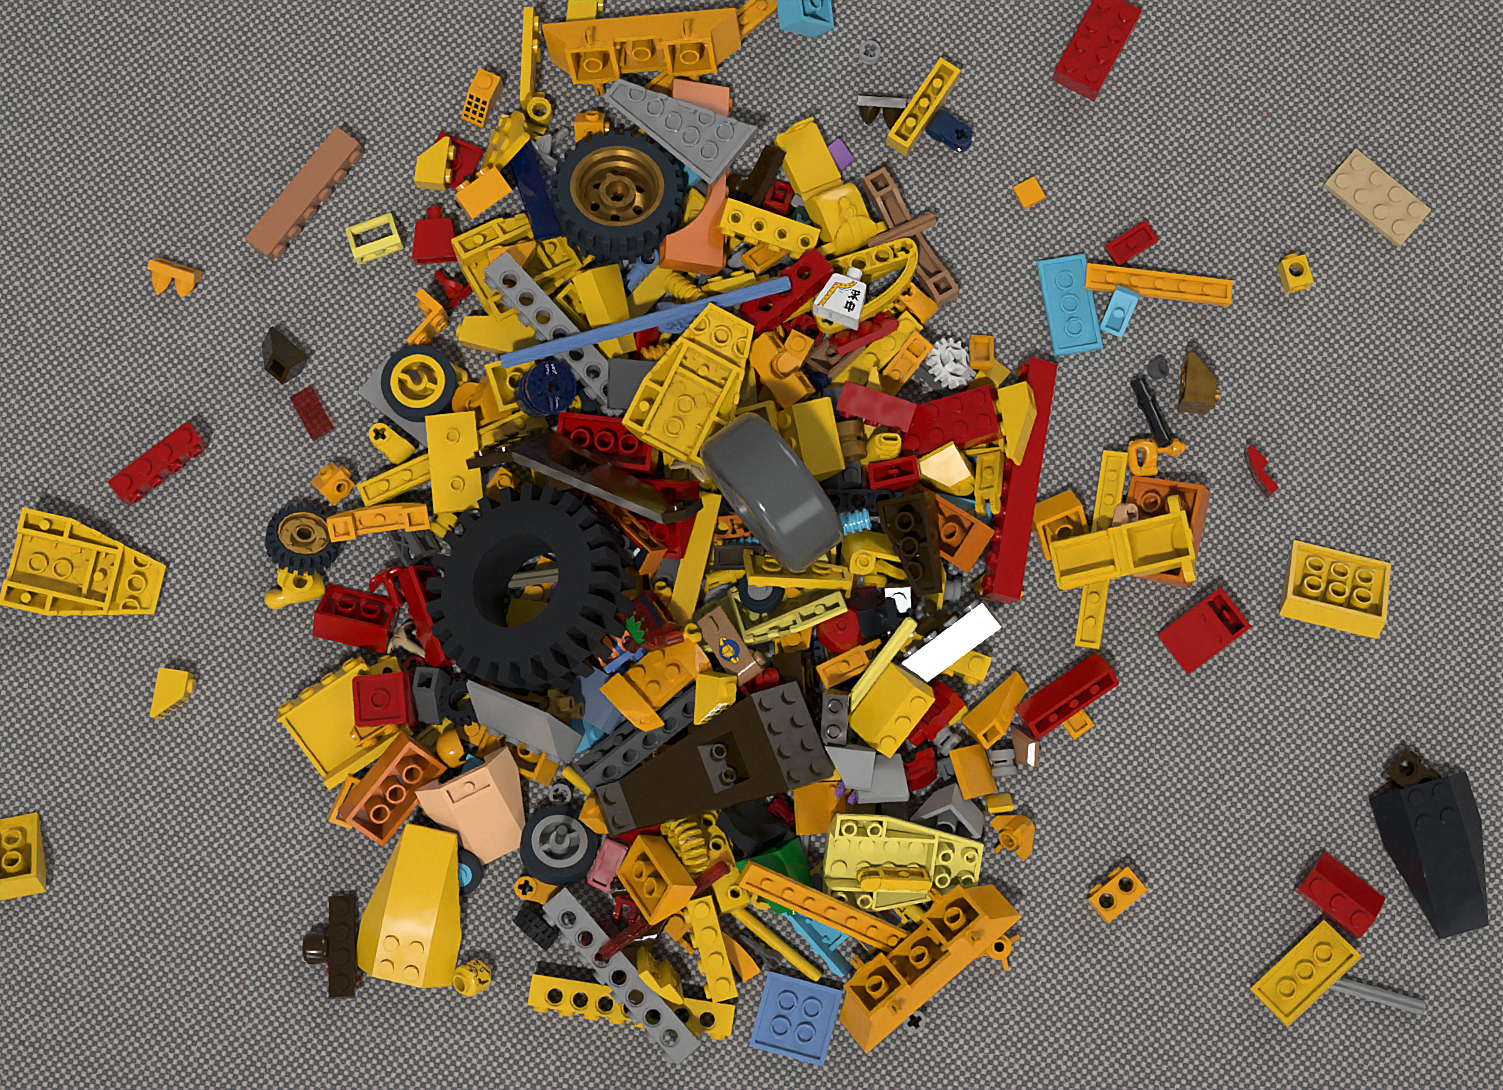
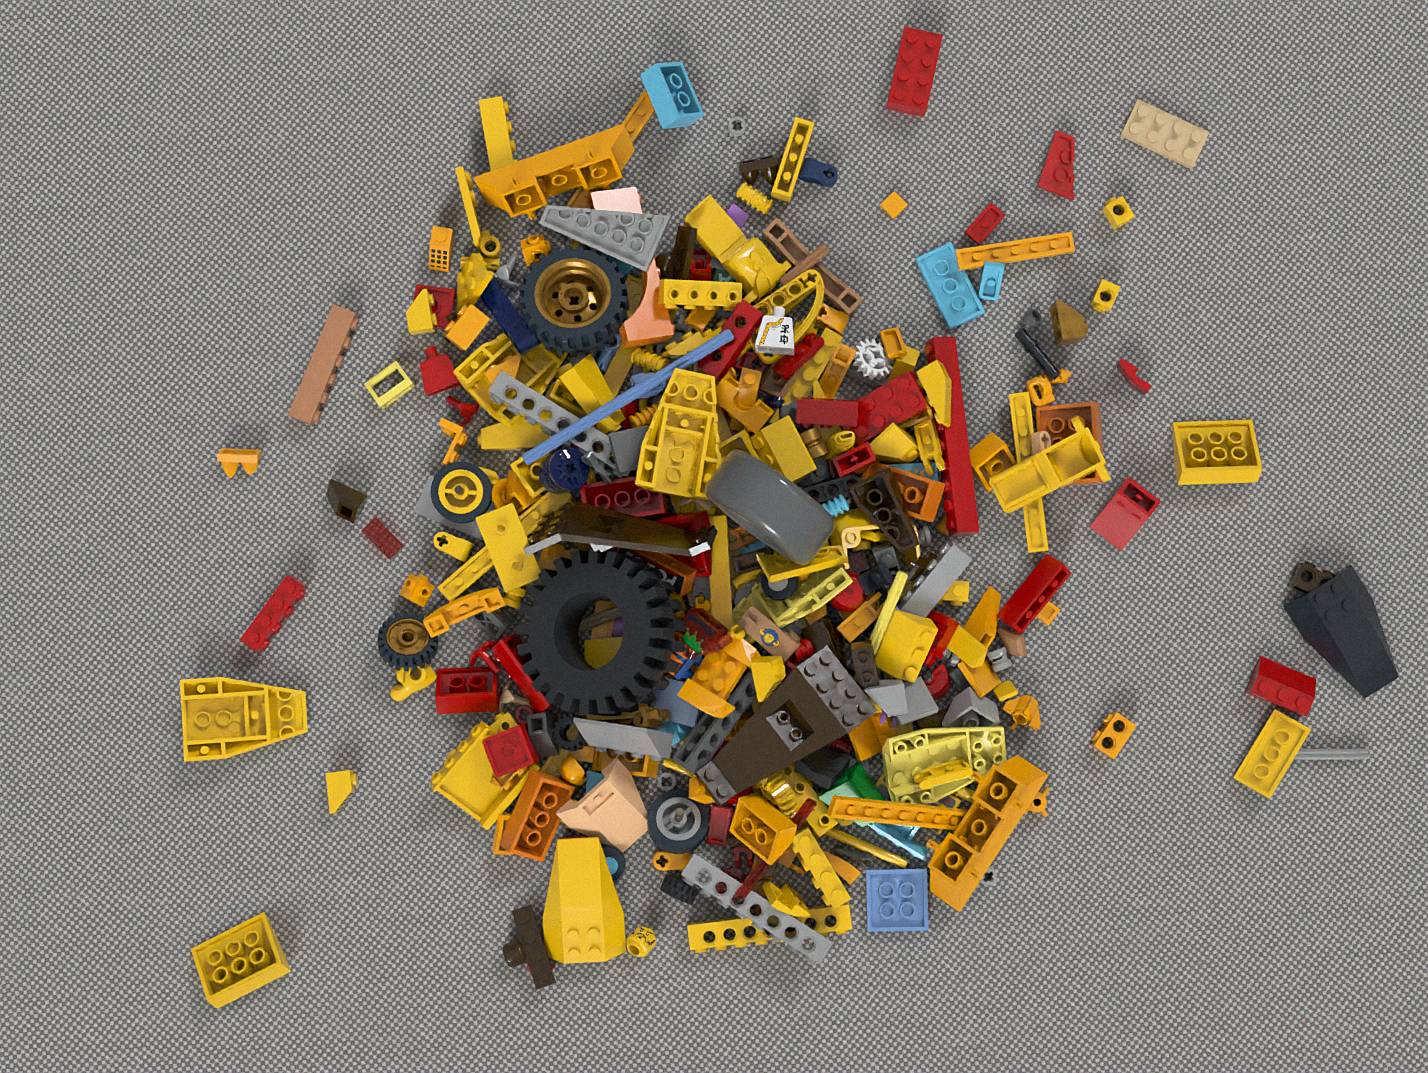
camera: 25 degrees left, 5 degrees up
(580, 385) = (591, 460): none -> dark grey piece
(864, 138) = (754, 198): none -> yellow piece
(966, 736) = (967, 648): none -> yellow slope
(1237, 203) = (1057, 169): none -> red wing
(1258, 359) = (1107, 288): none -> yellow brick

